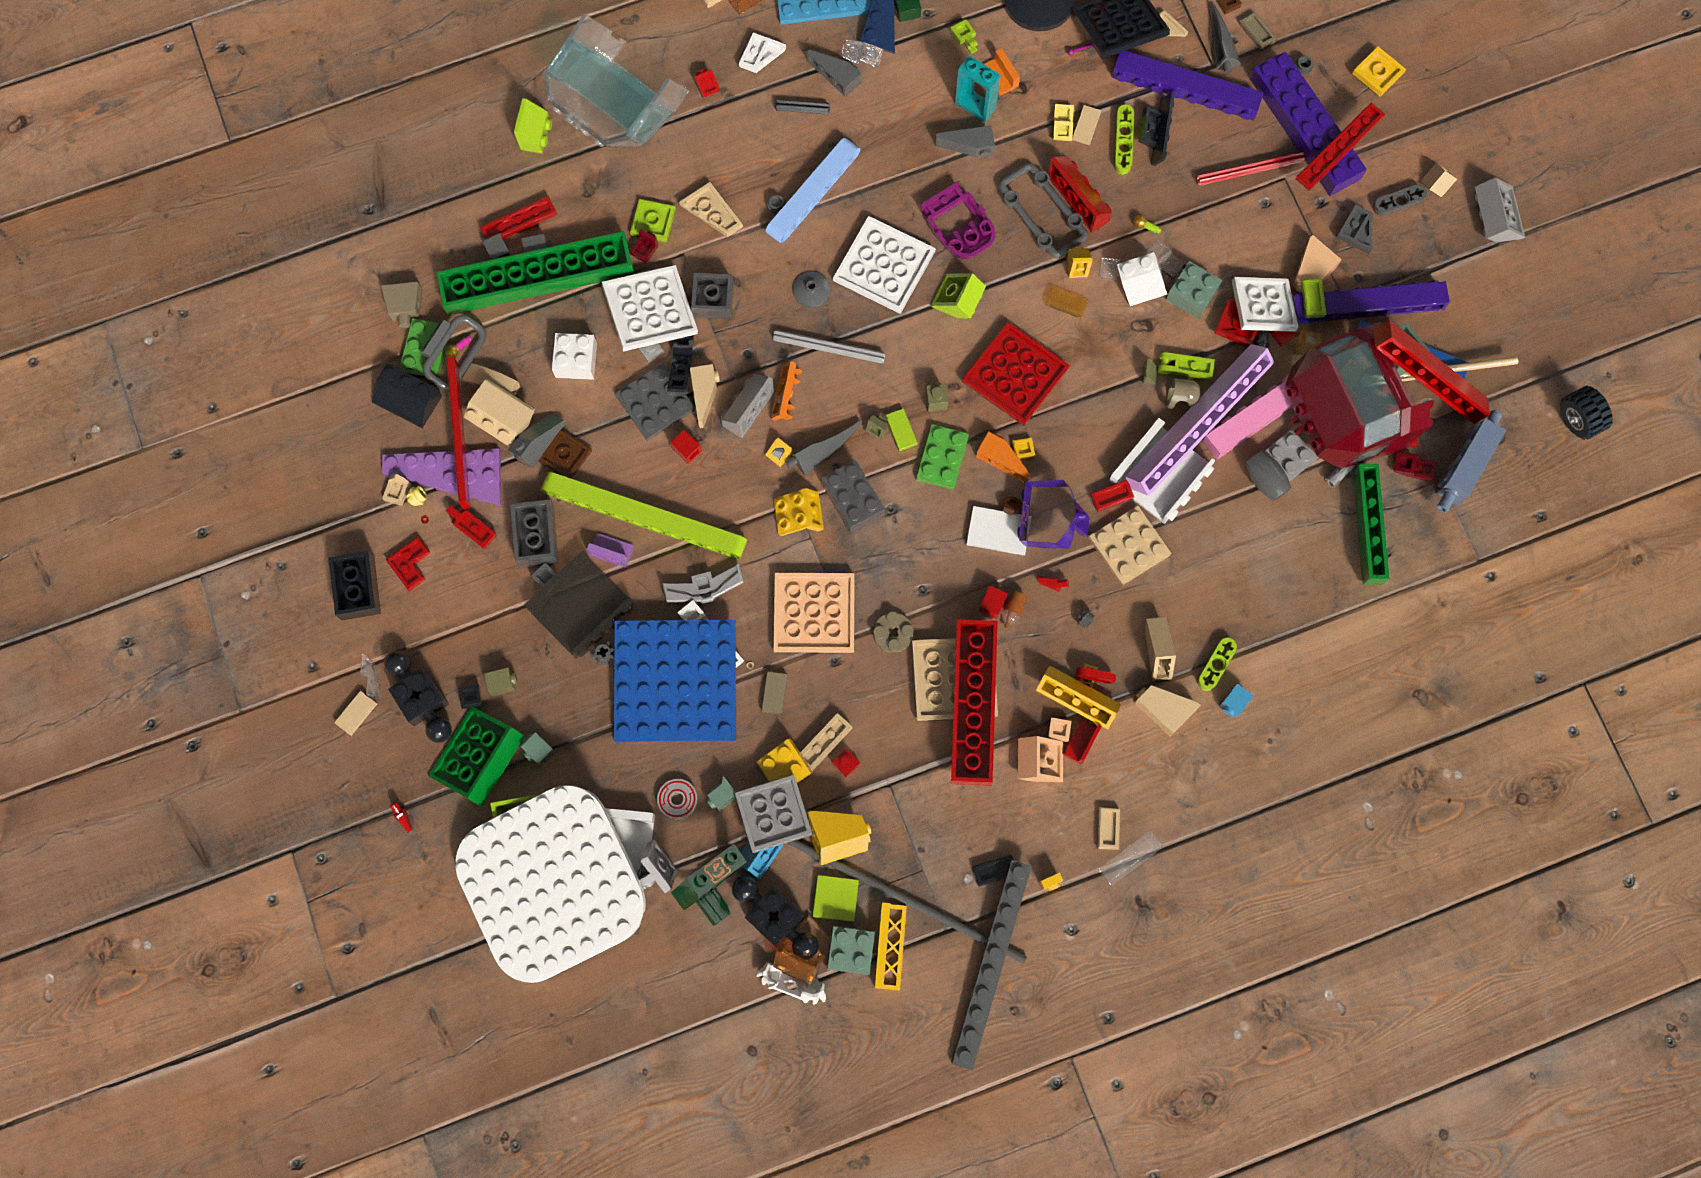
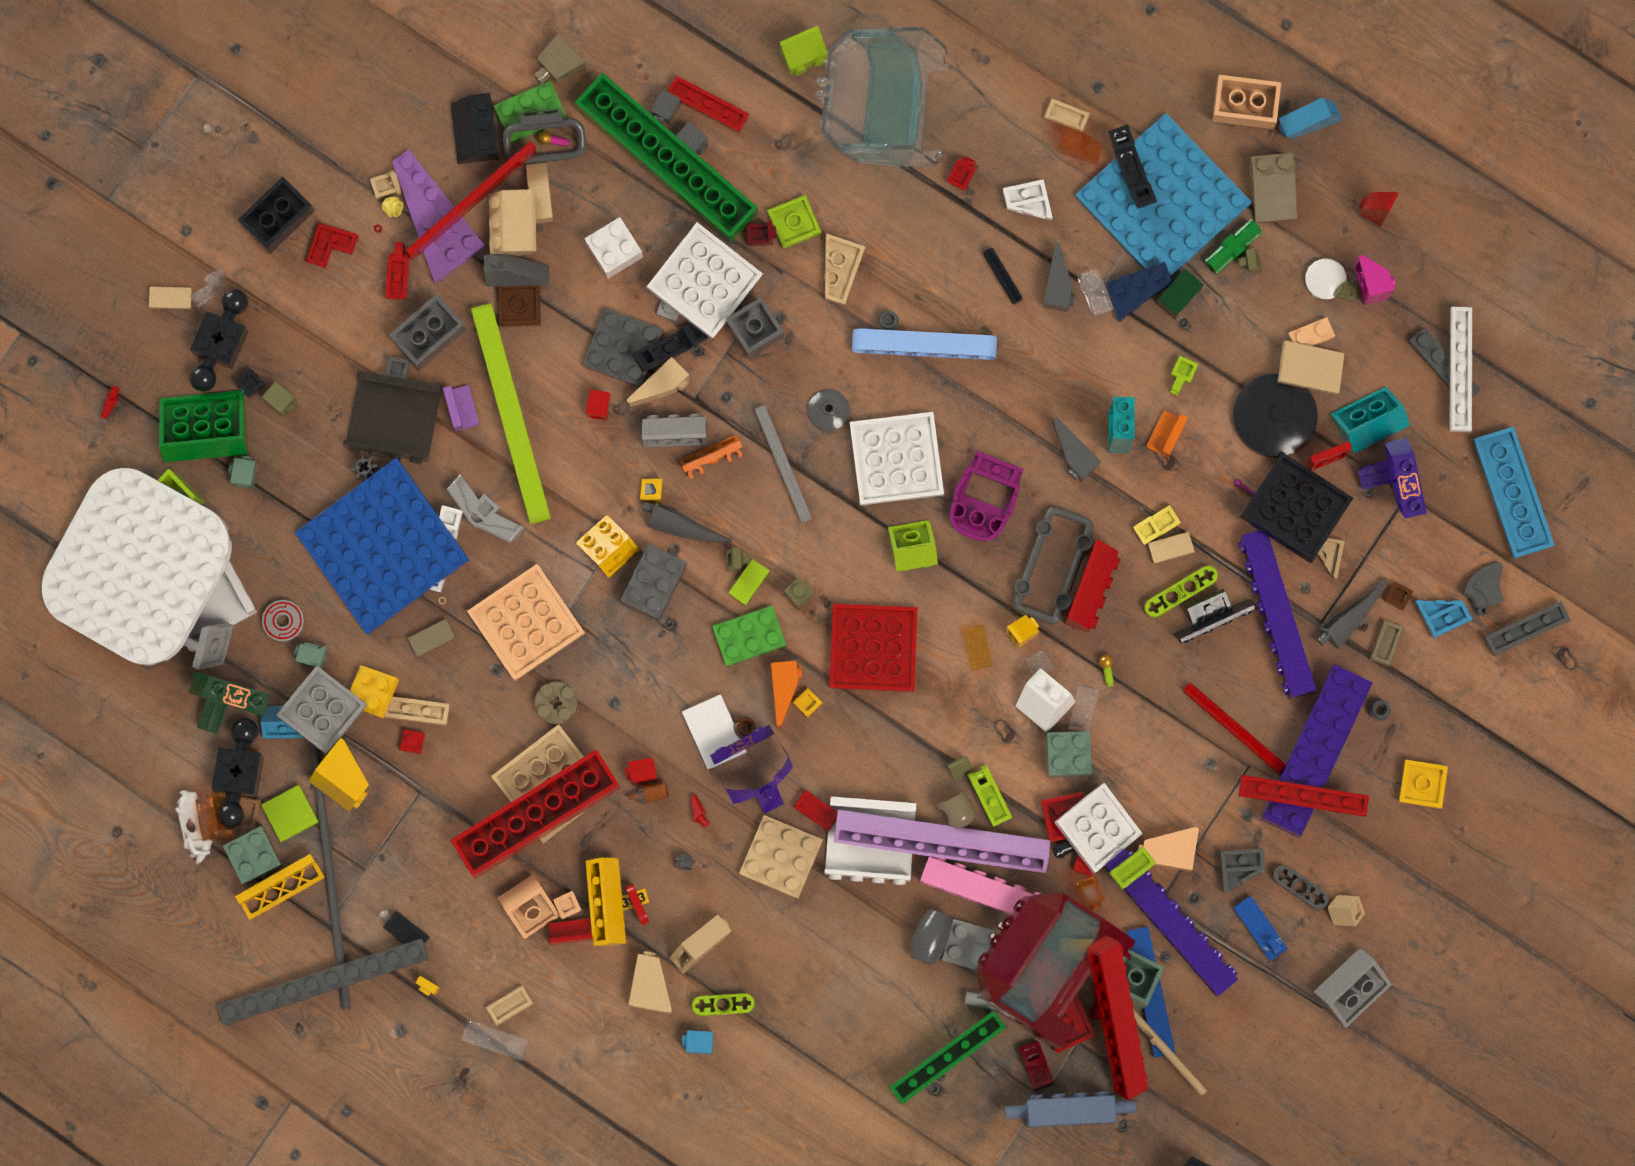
camera: 55 degrees right, 5 degrees up
(1412, 246) = (1260, 928): none -> blue hinge

